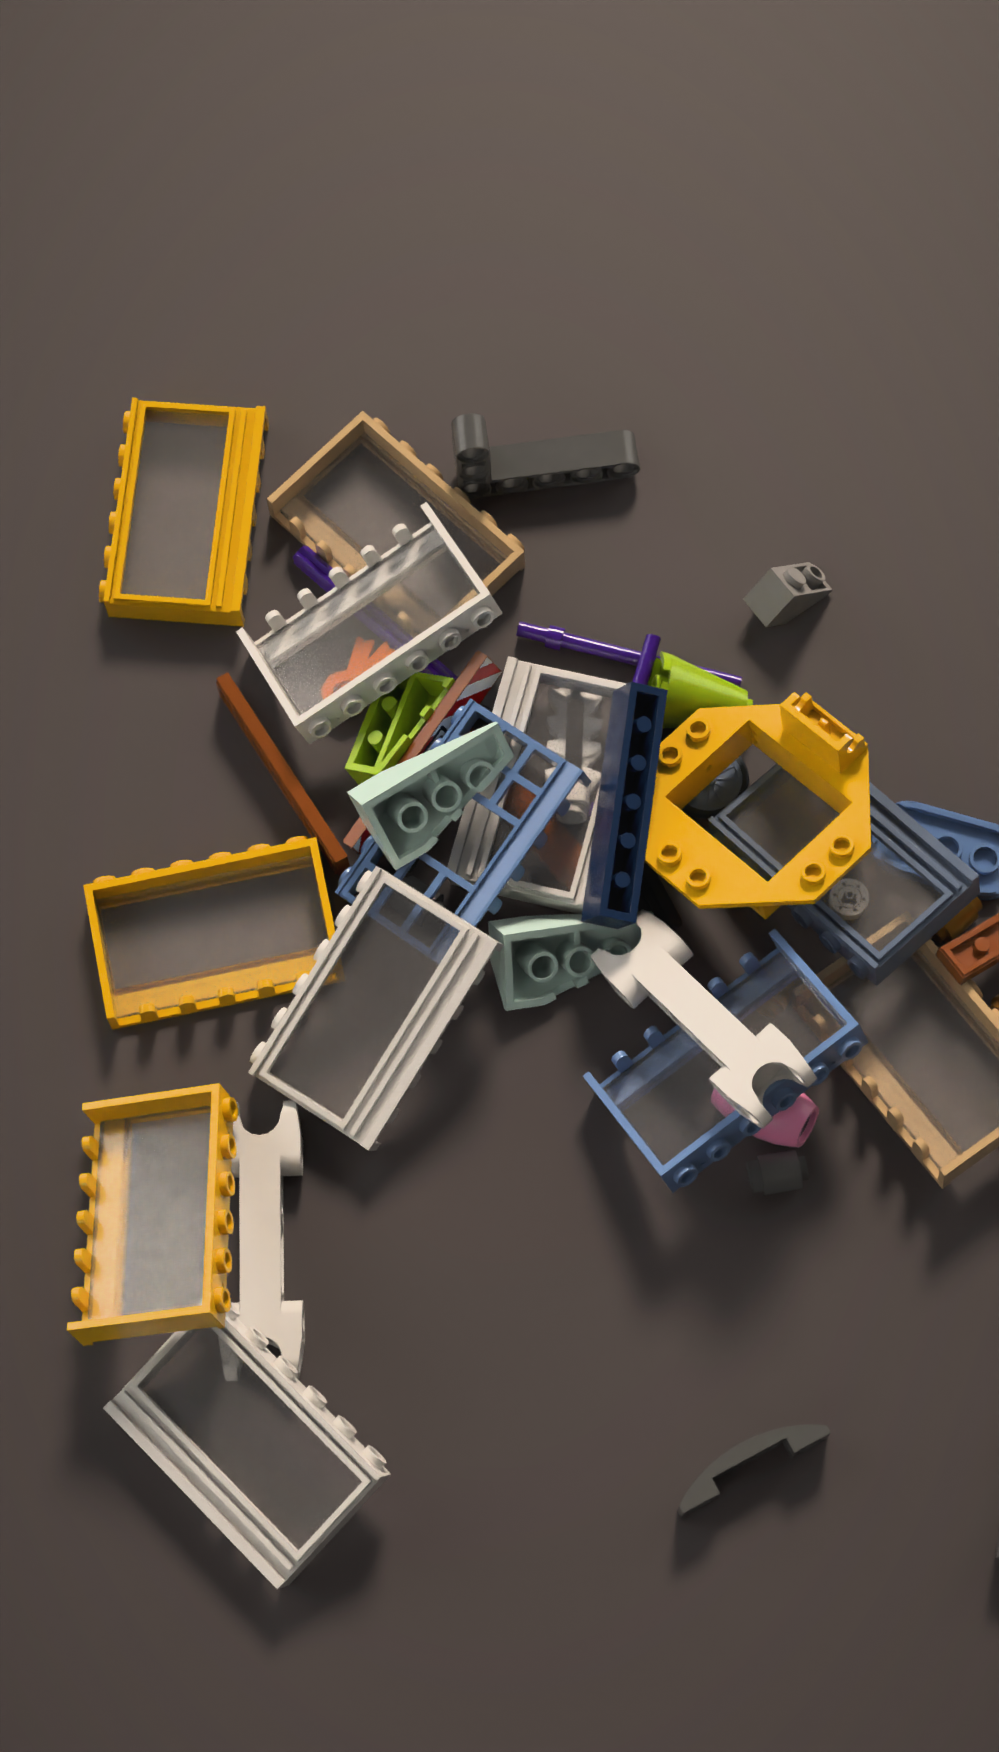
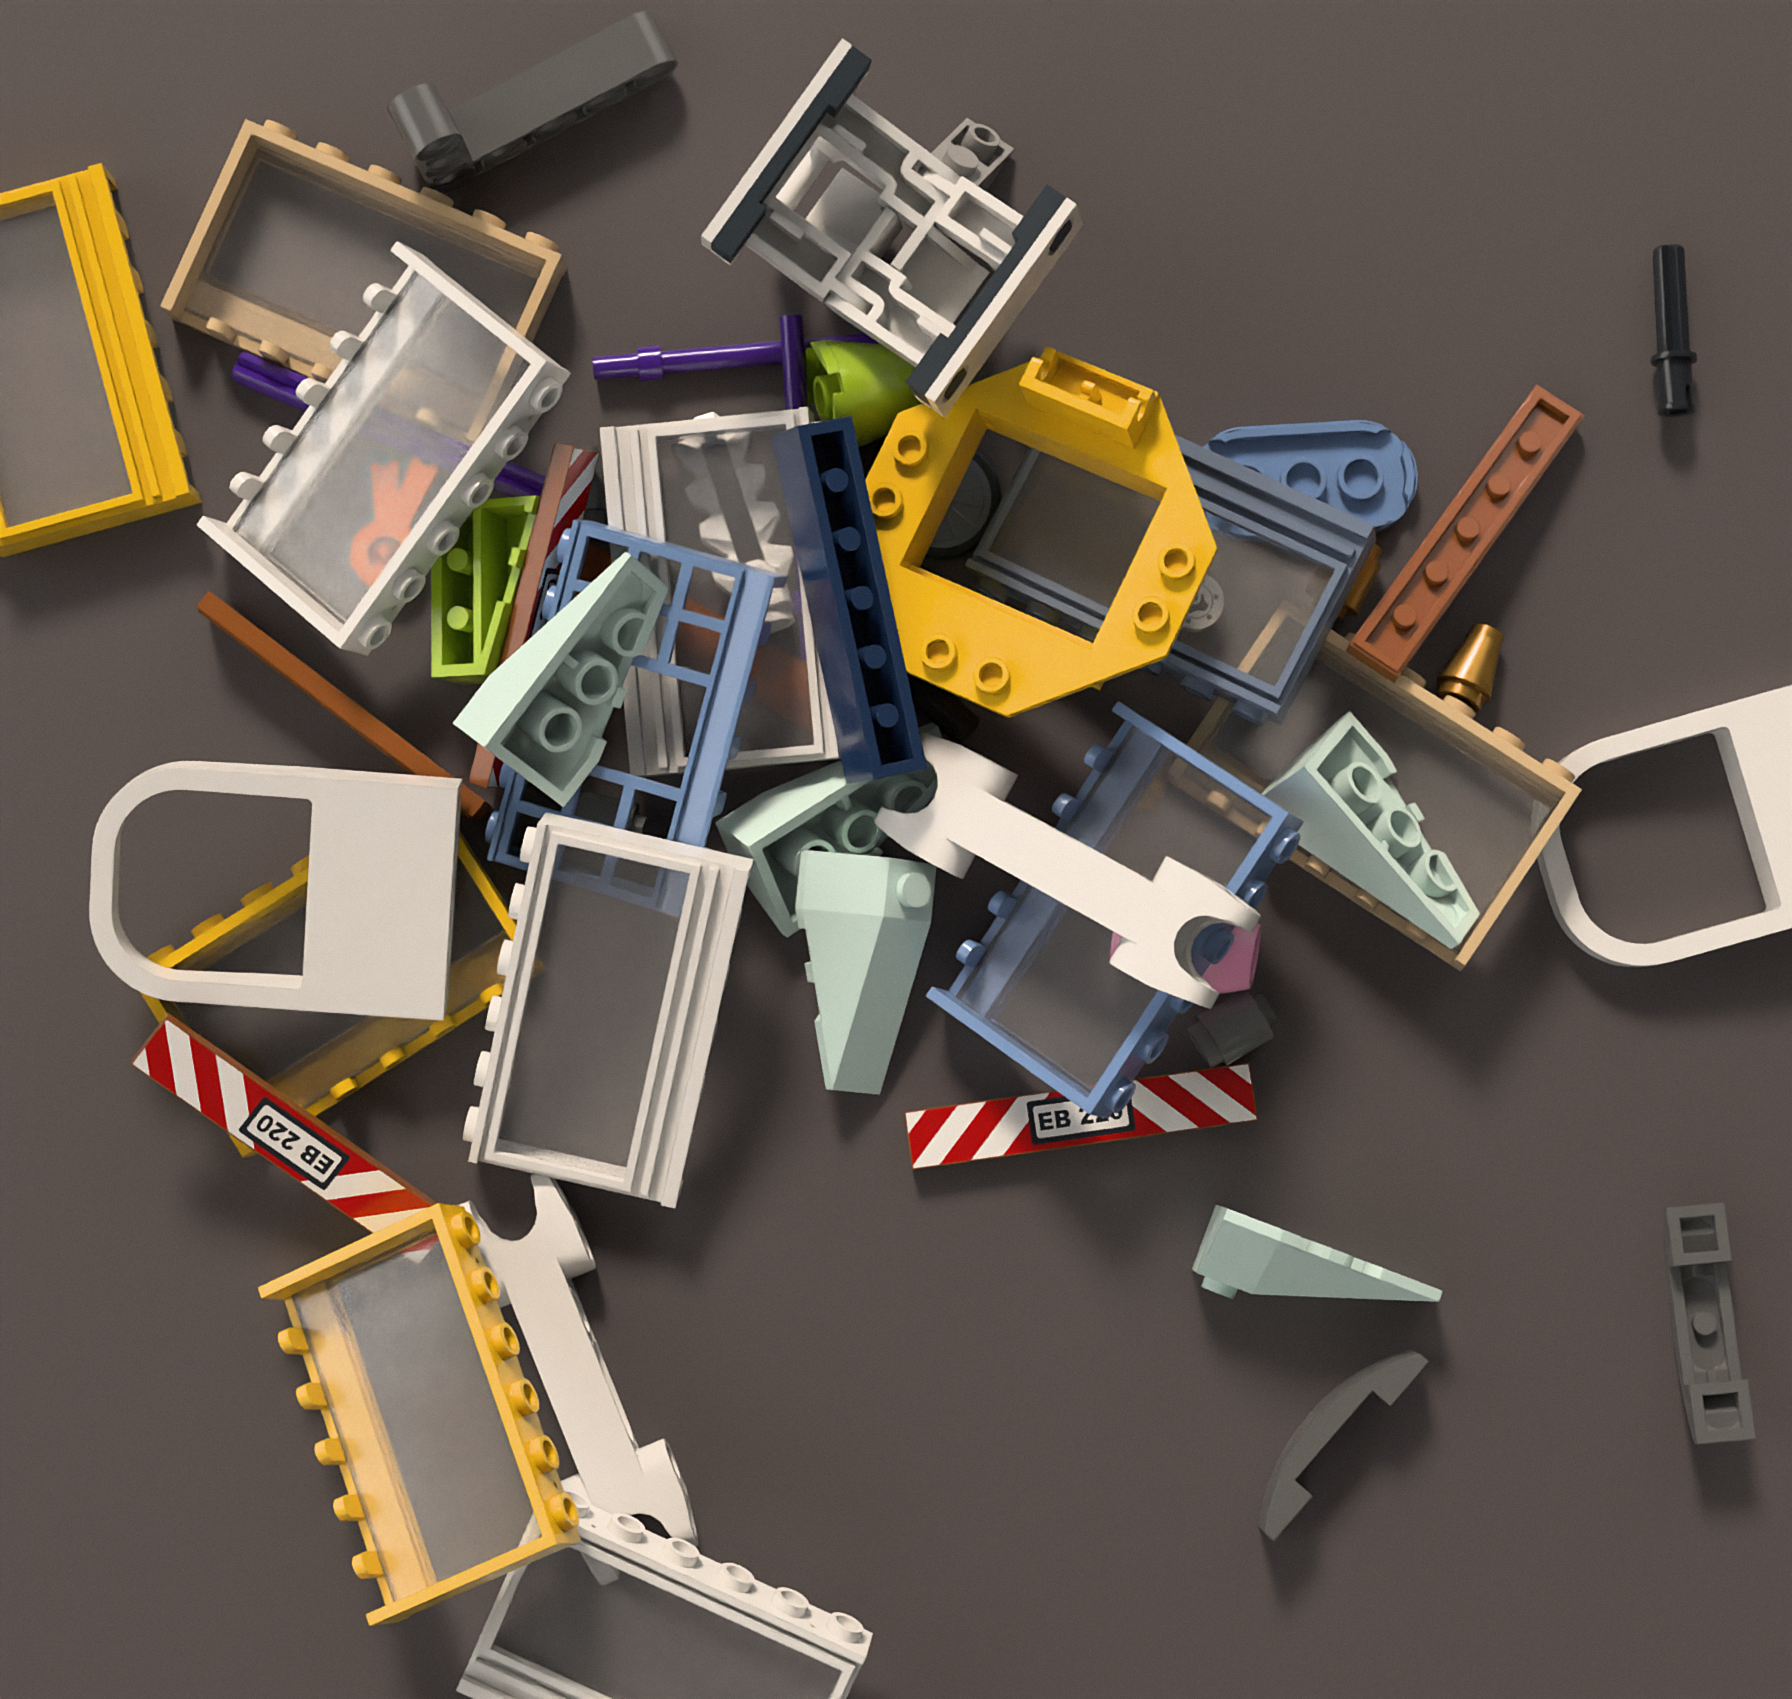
camera: 25 degrees left, 15 degrees up
(133, 1002) = (276, 1127): none -> tile
(255, 885) = (374, 891): none -> white window
(555, 1029) = (864, 943): none -> light aqua wedge
(650, 1196) = (1054, 1122): none -> tile
(744, 648) = (852, 226): none -> white container
(744, 1327) = (1272, 1261): none -> light aqua wedge
(909, 1071) = (1369, 833): none -> light aqua wedge

